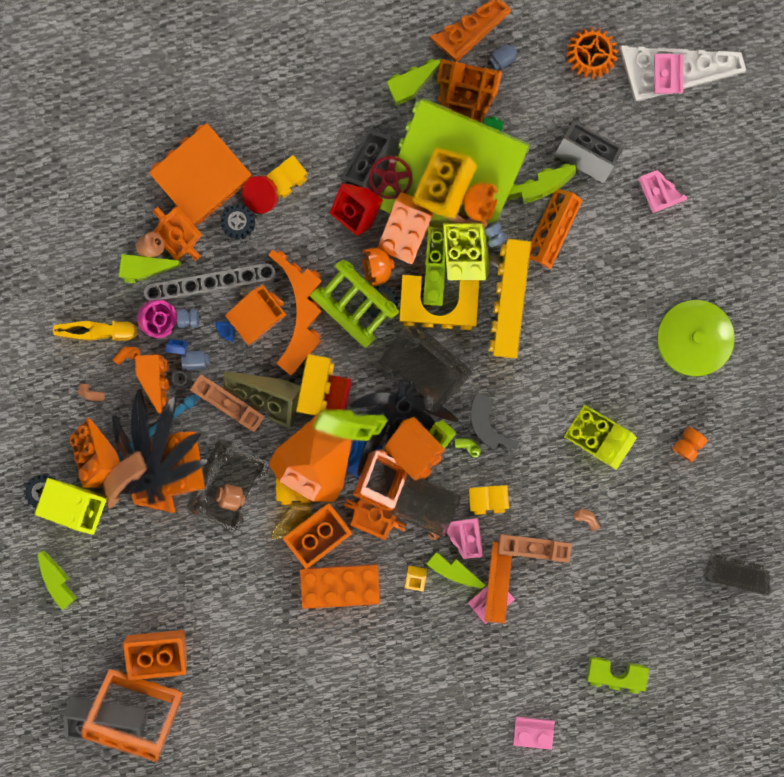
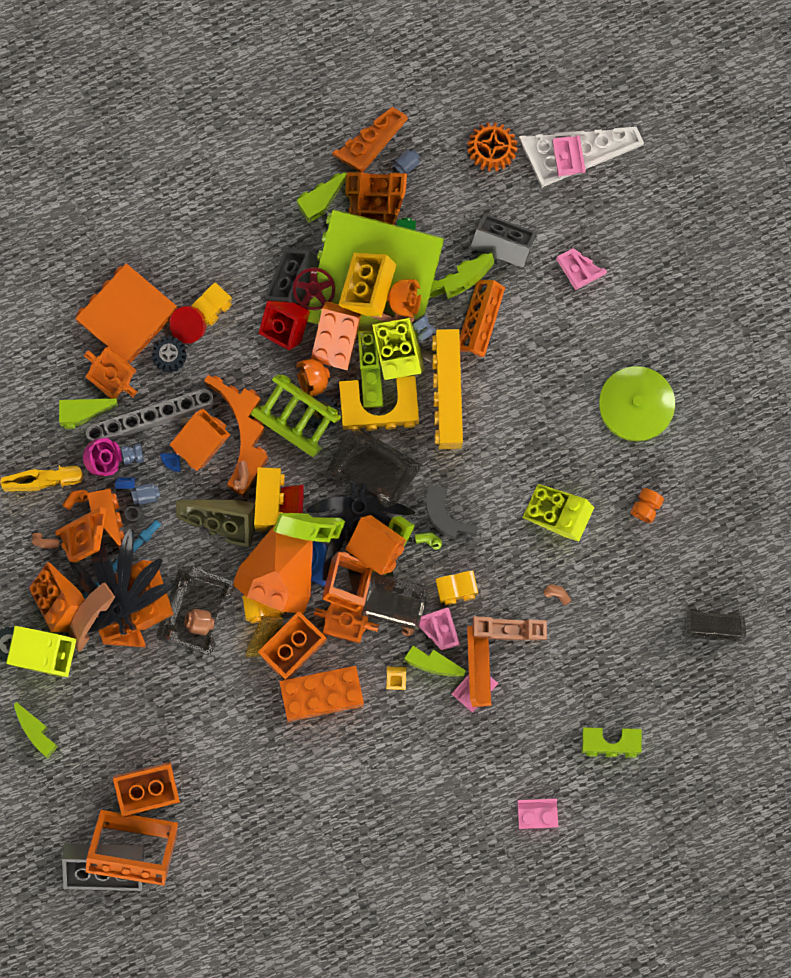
camera: 15 degrees left, 10 degrees down
(126, 397) = (83, 535): none -> orange wing
(150, 245) = (85, 387): nougat head -> none
(227, 403) = (183, 531): nougat slope -> none
(293, 358) = (244, 475): none -> nougat arm

